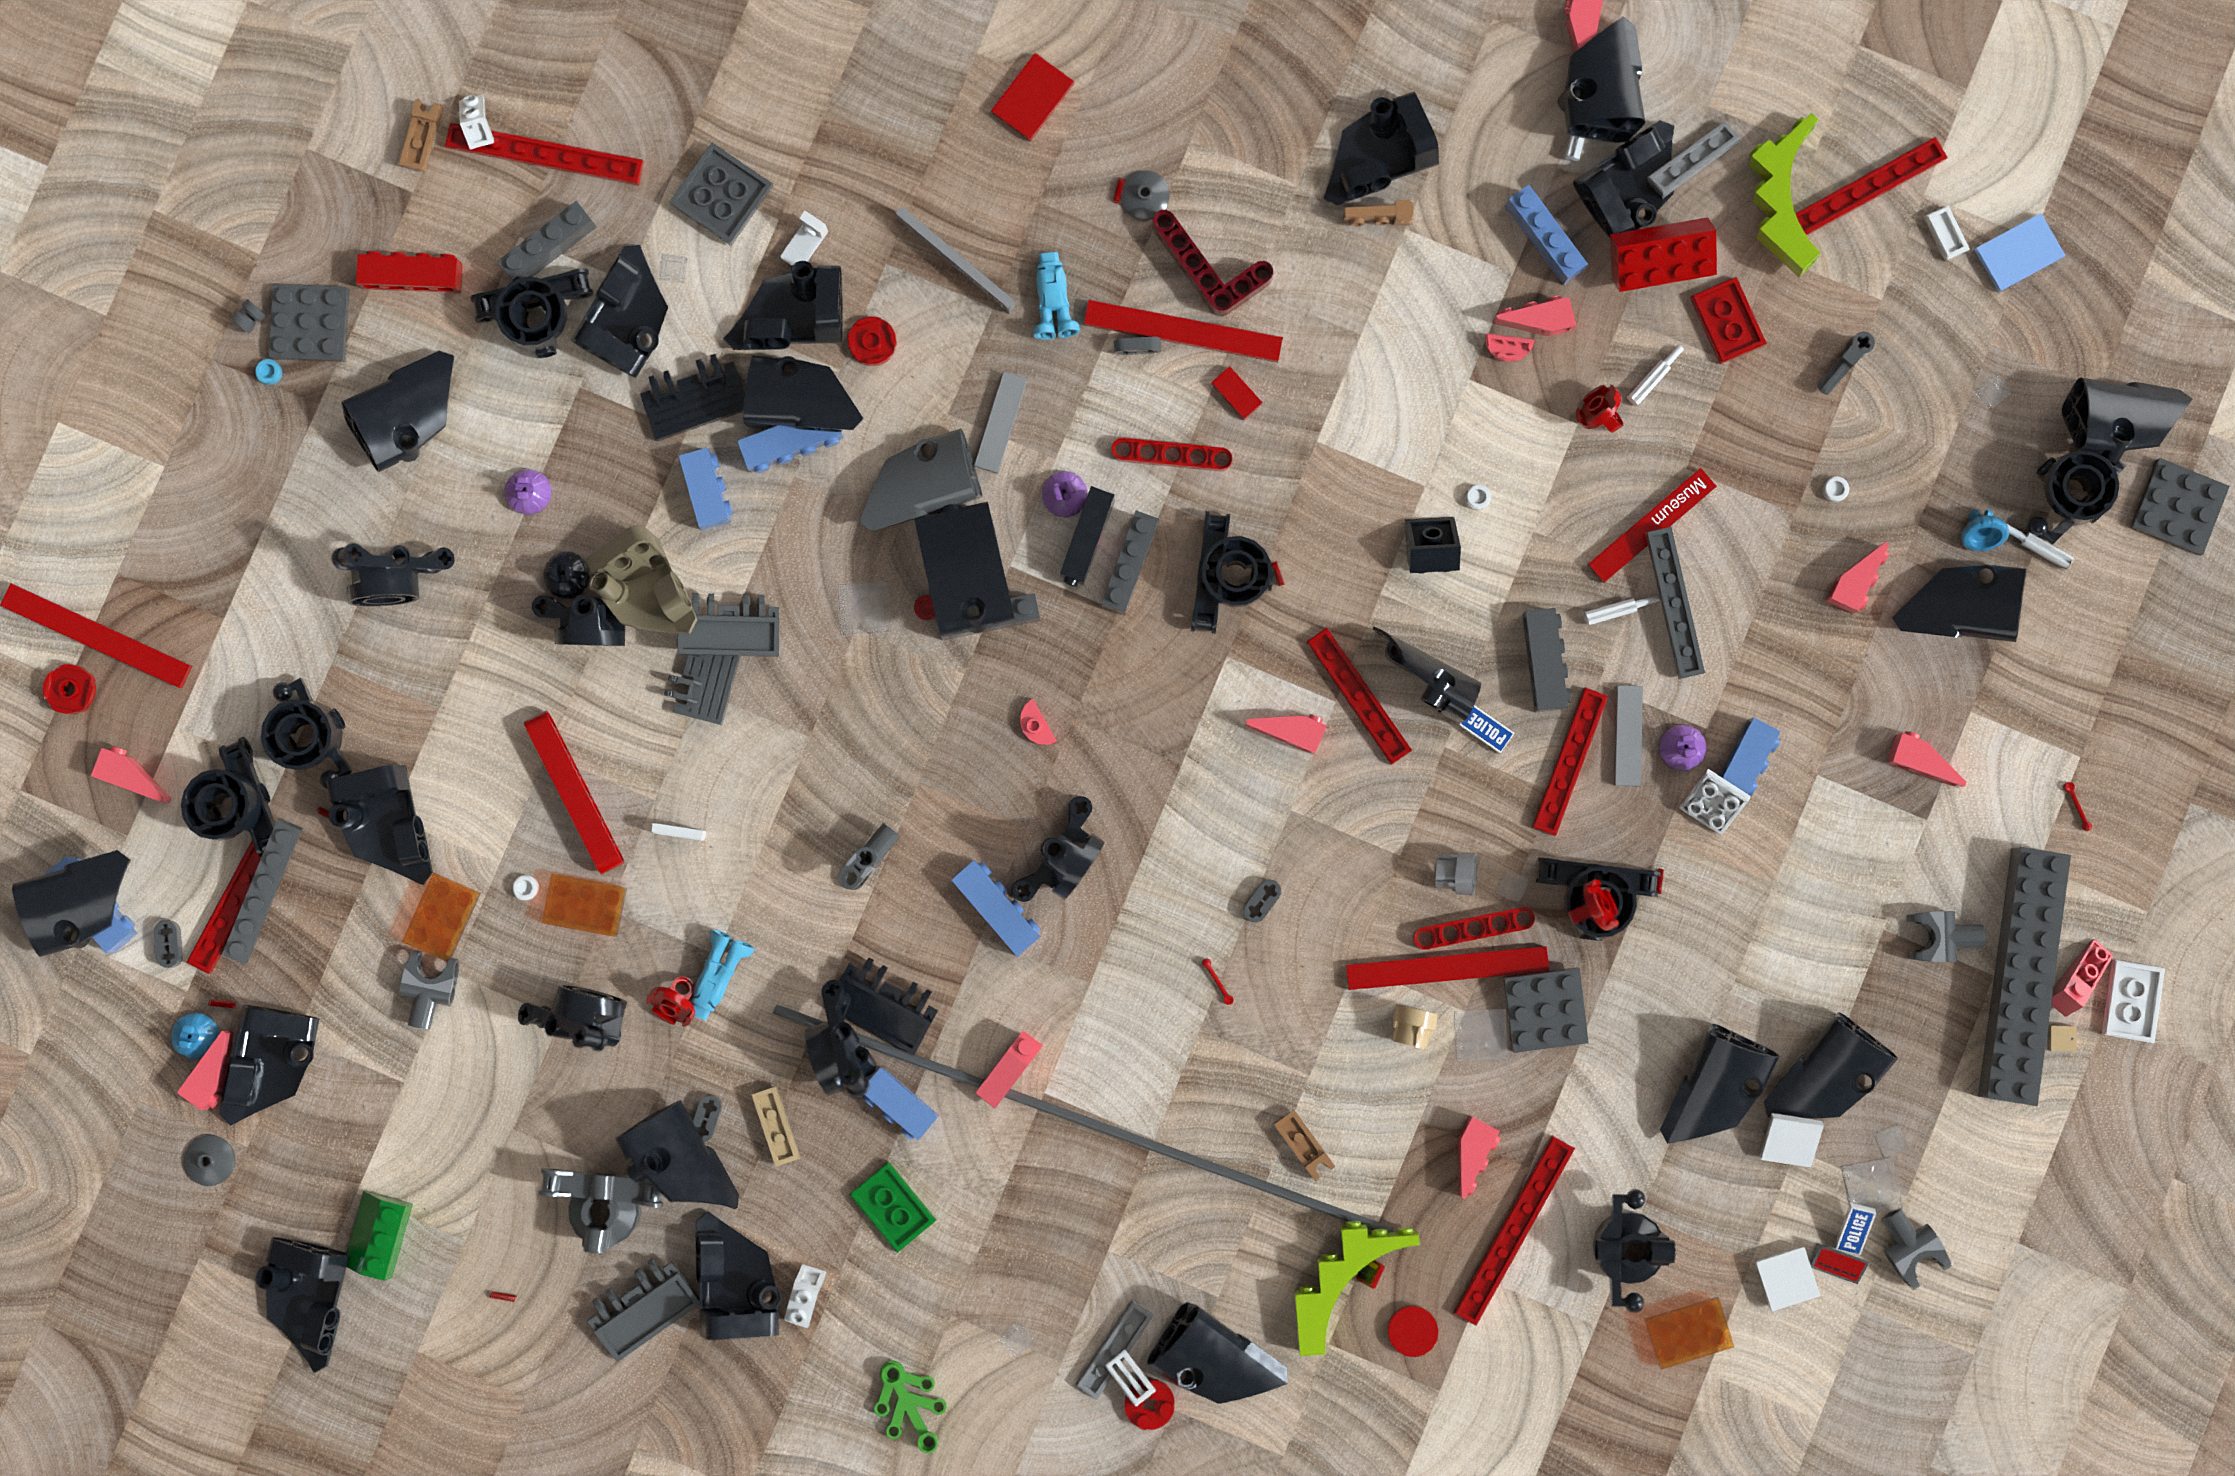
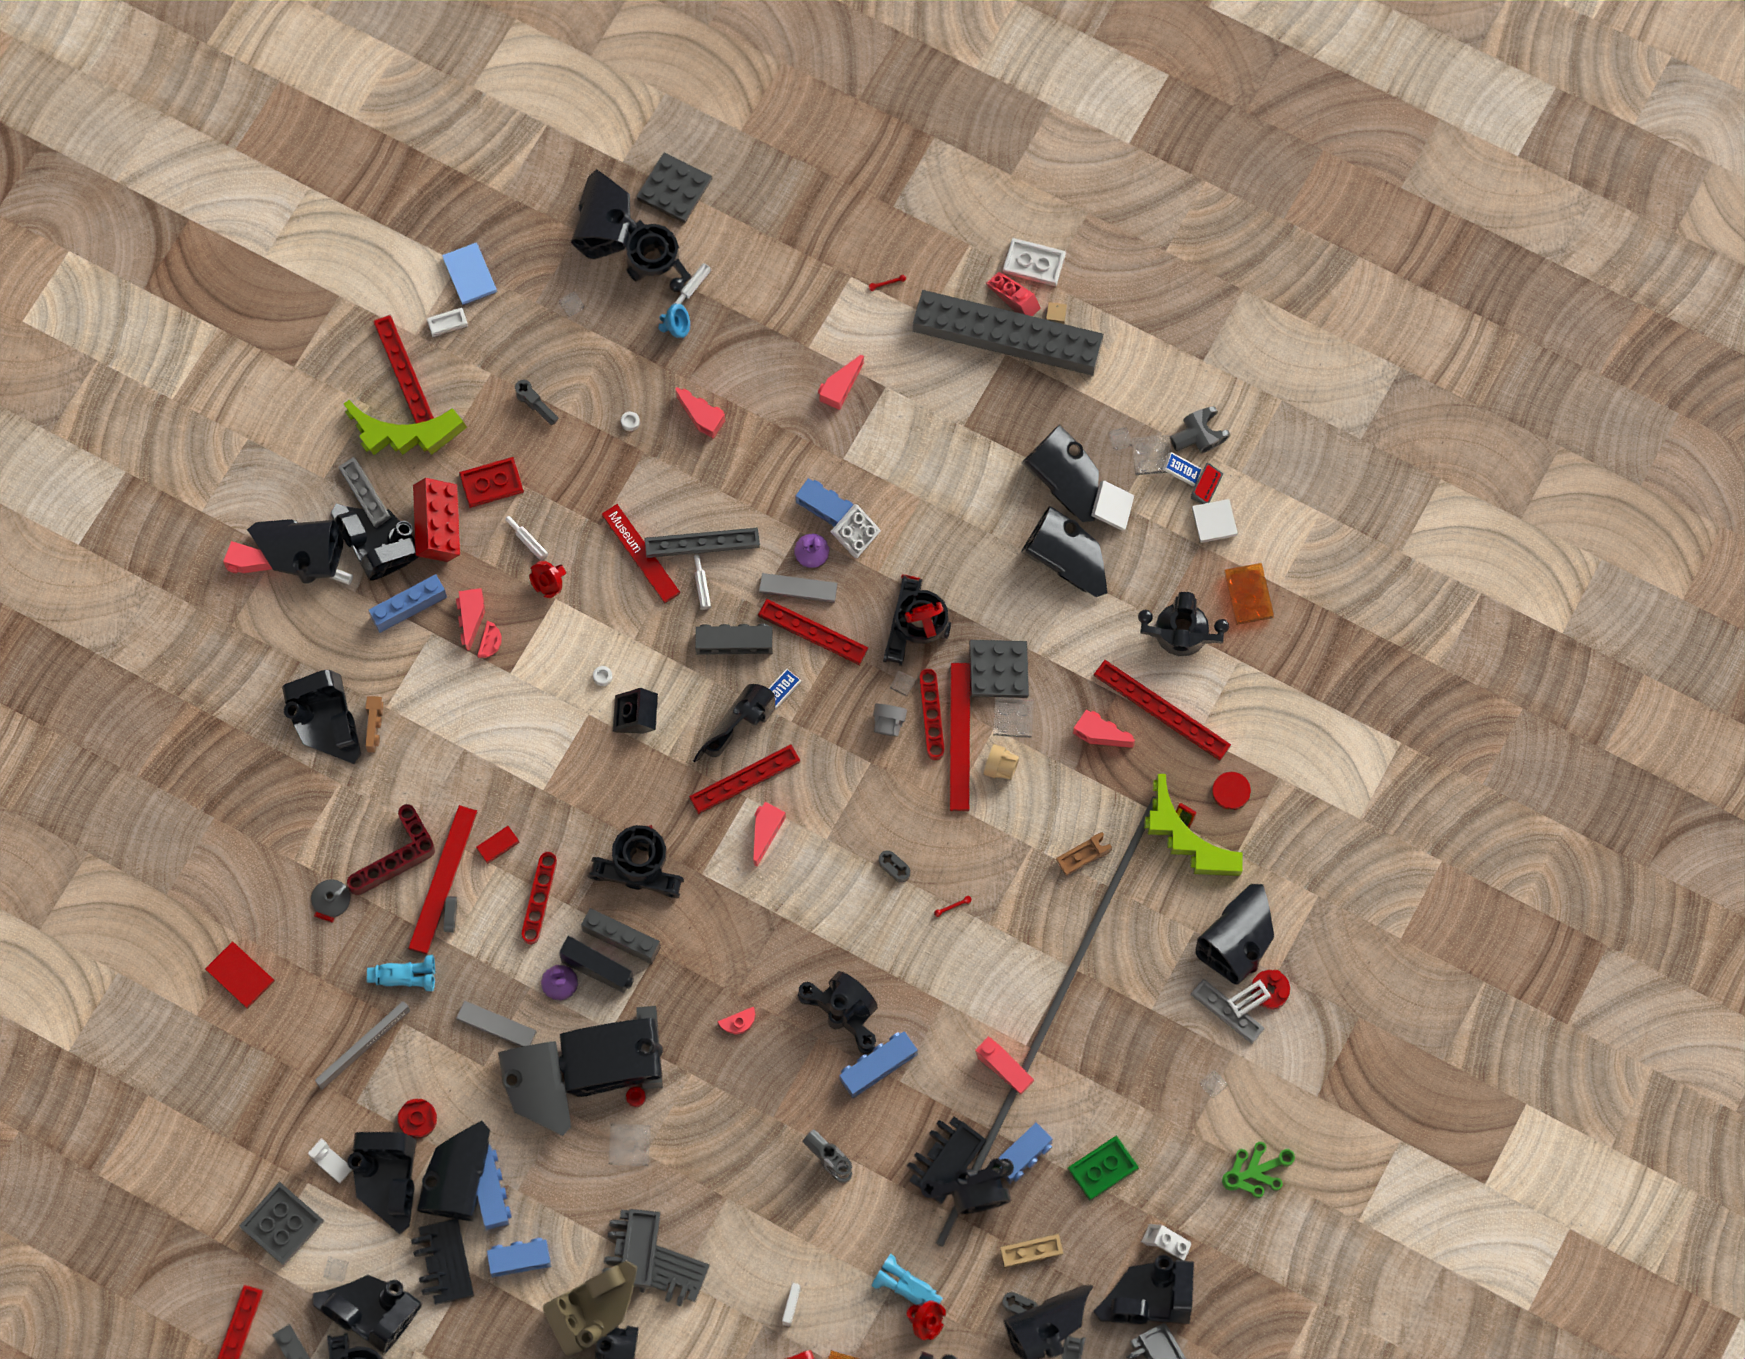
camera: 85 degrees left, 15 degrees down
(1945, 936) = (973, 383): dark grey connector -> none
(1962, 605) = (730, 341): black panel -> none

